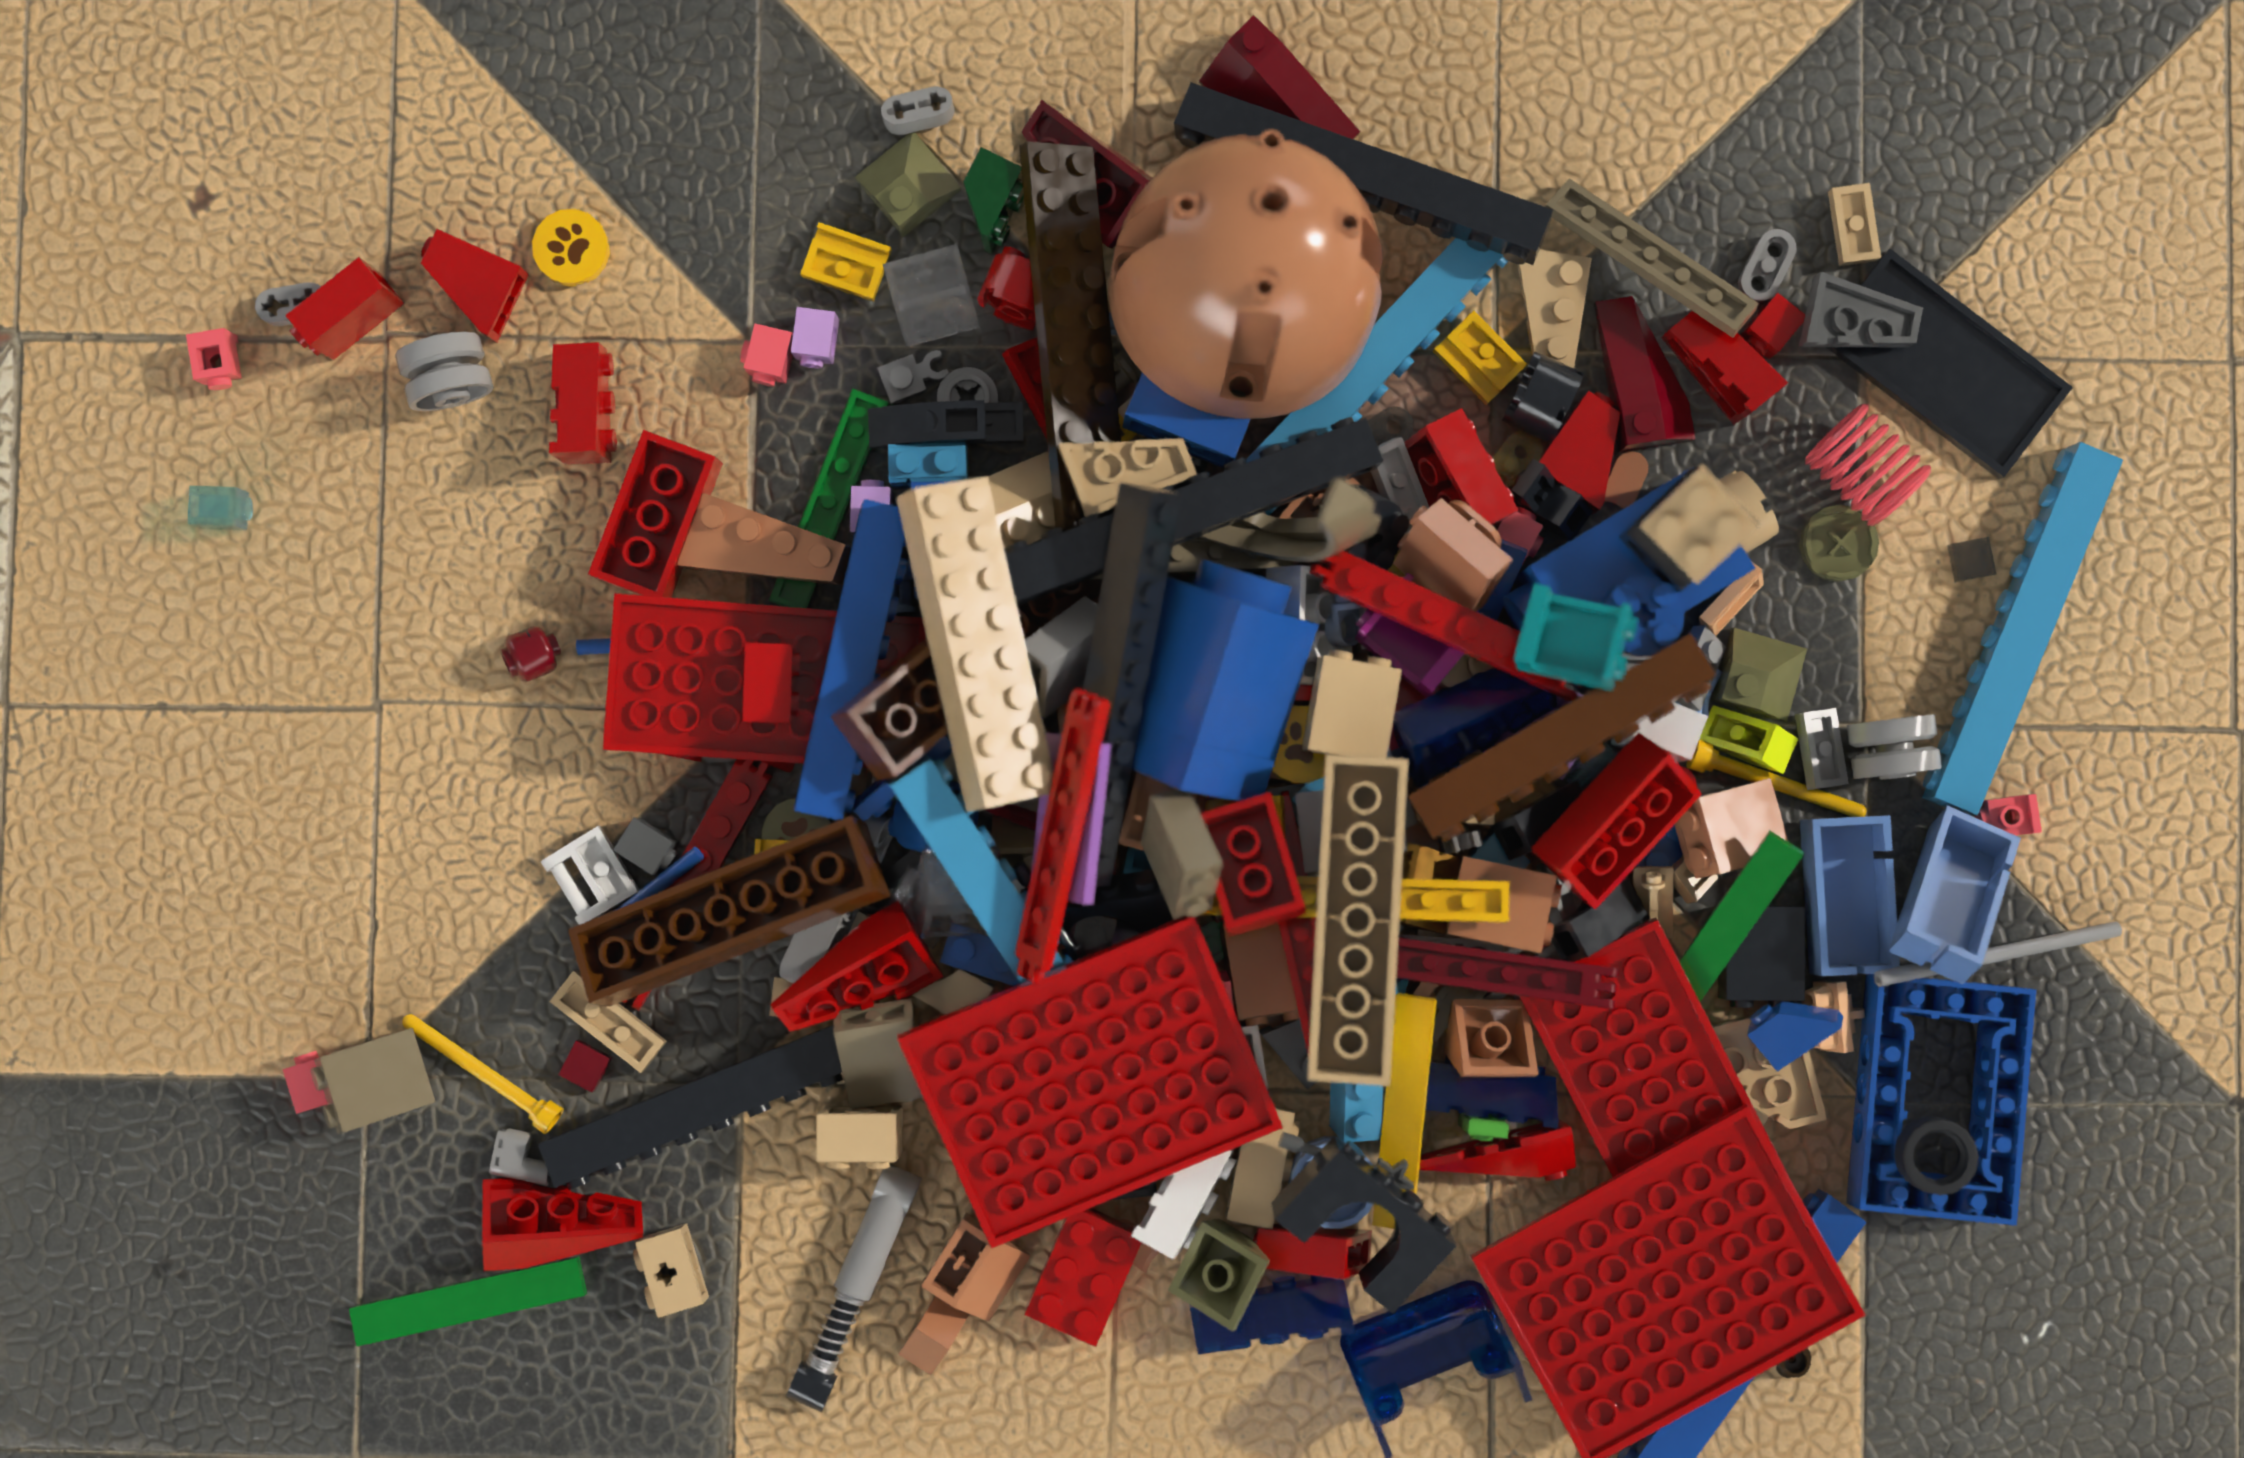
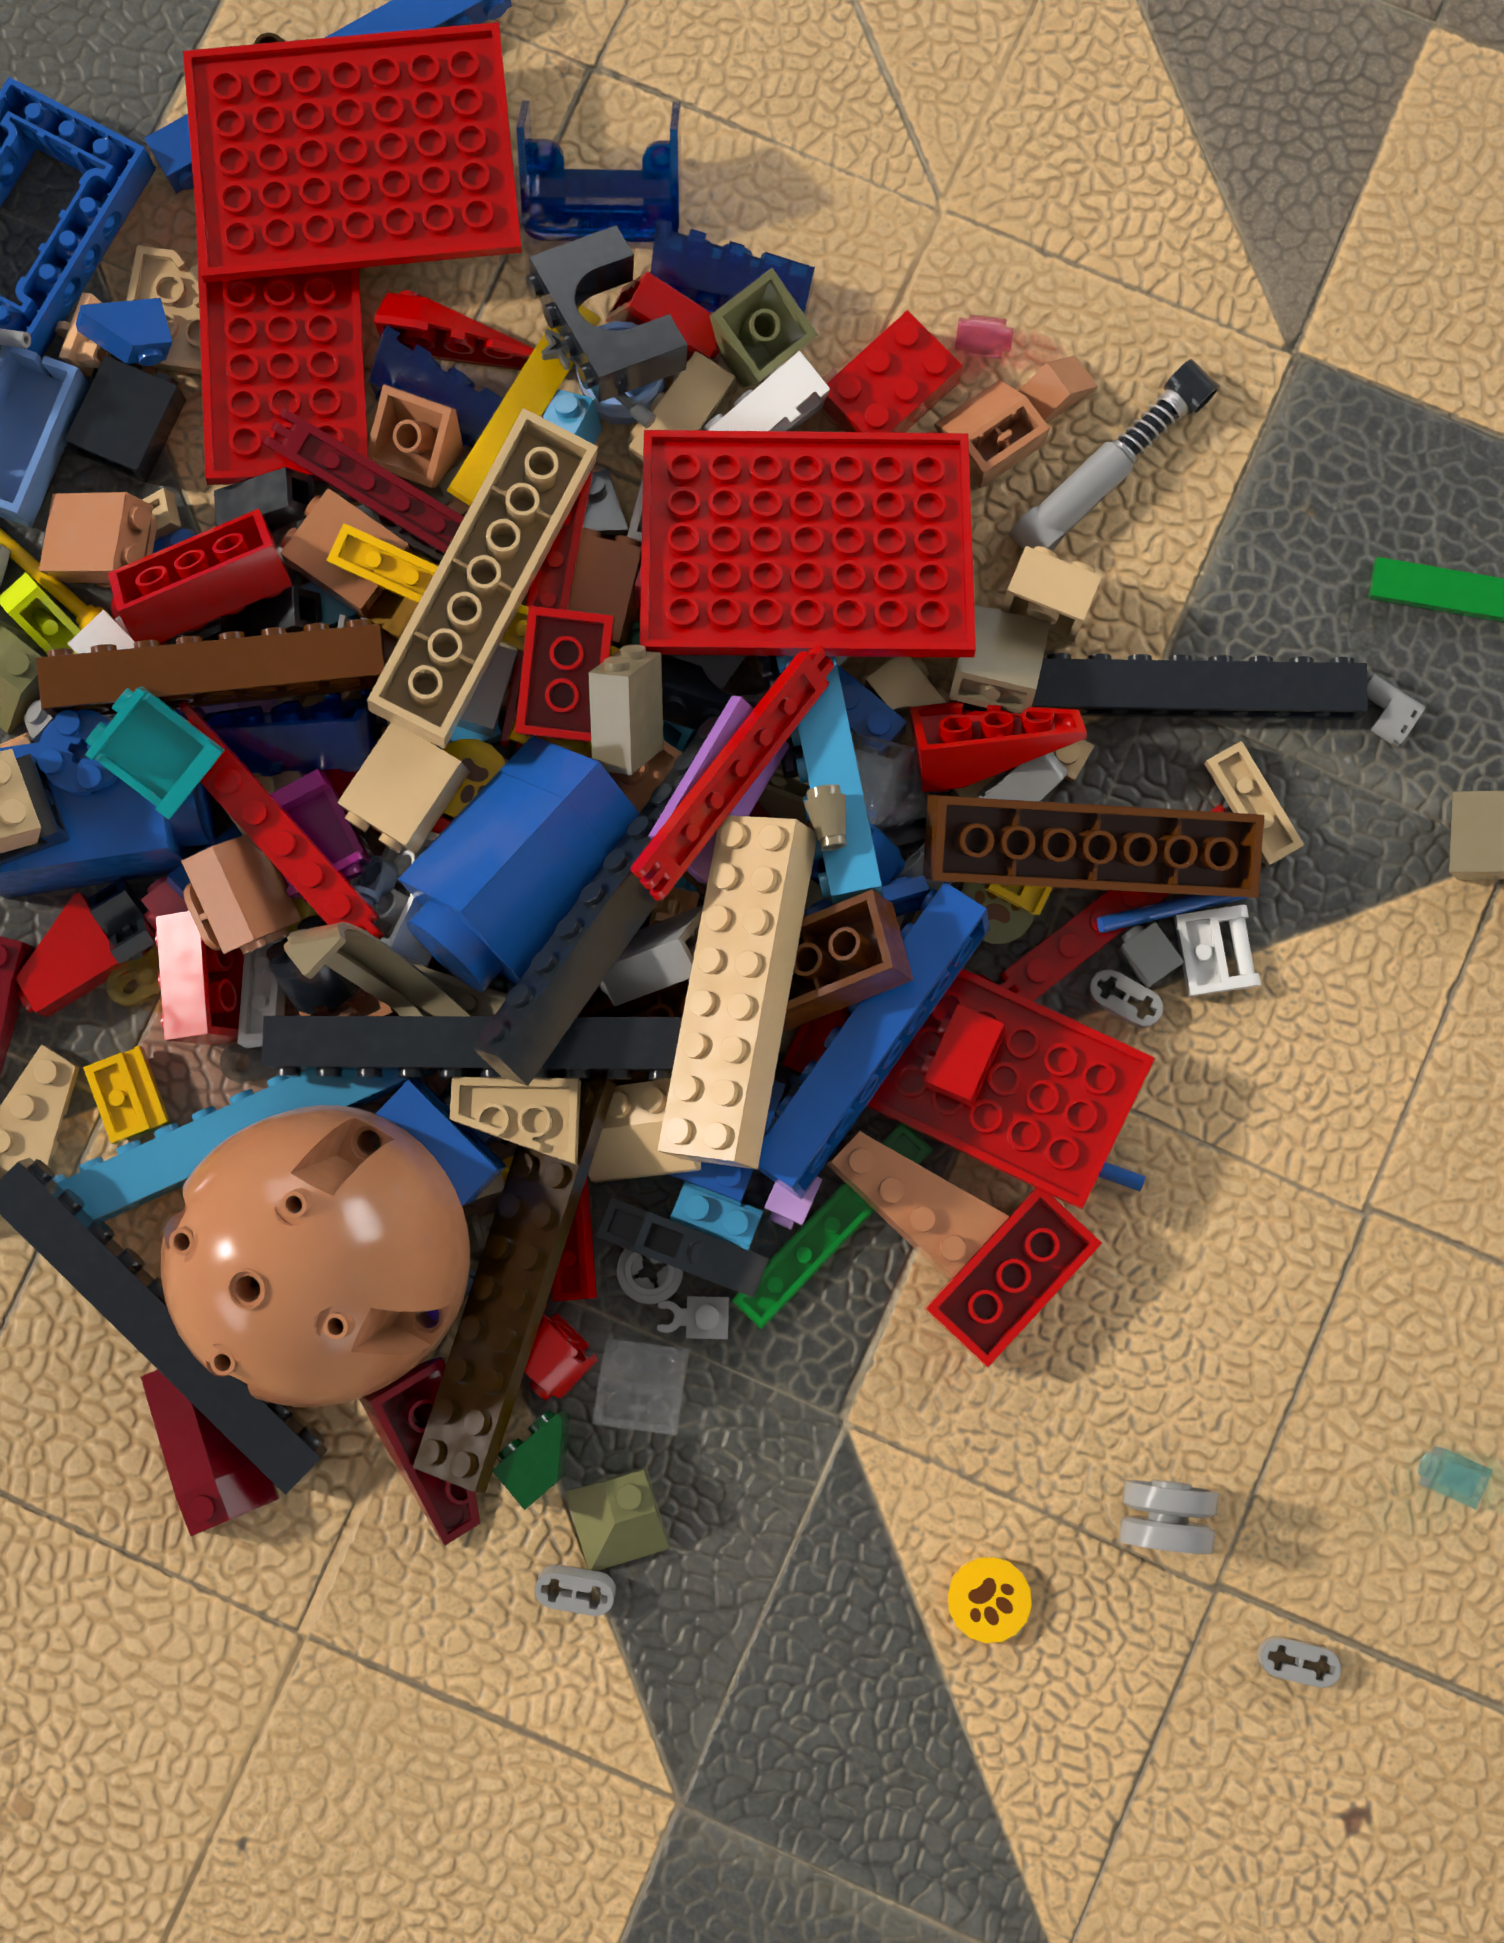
camera: 155 degrees left, 5 degrees down
(206, 349) = (1412, 1647): coral brick -> none
(343, 310) = (1248, 1626): red brick -> none
(475, 280) = (1102, 1604): red slope -> none
(530, 653) = (1191, 1194): dark red head -> none
(542, 1113) = (1353, 744): yellow piece -> none
(544, 1224) = (1397, 638): red wedge -> none
(582, 404) = (1039, 1427): red wedge -> none
(585, 1066) = (1293, 772): dark red tile -> none
(654, 811) = (1130, 990): none -> light grey beam
(677, 1251) = (1272, 563): tan brick -> none
(767, 355) = (832, 1397): coral brick -> none
(814, 337) = (777, 1395): lavender brick -> none
(846, 261) = (713, 1462): yellow plate -> none
(962, 828) = (828, 815): none -> dark tan cone
(1019, 1356) = (983, 336): none -> clear pink brick
(1484, 1128) = (452, 355): bright green plate -> none
(1543, 397) = (81, 1024): black brick -> none
(1626, 479) = (39, 917): nougat piece -> none
(1655, 890) = (197, 509): tan hinge -> none
(1738, 911) = (125, 455): green tile -> none
(1966, 1160) = (34, 138): black tyre -> none

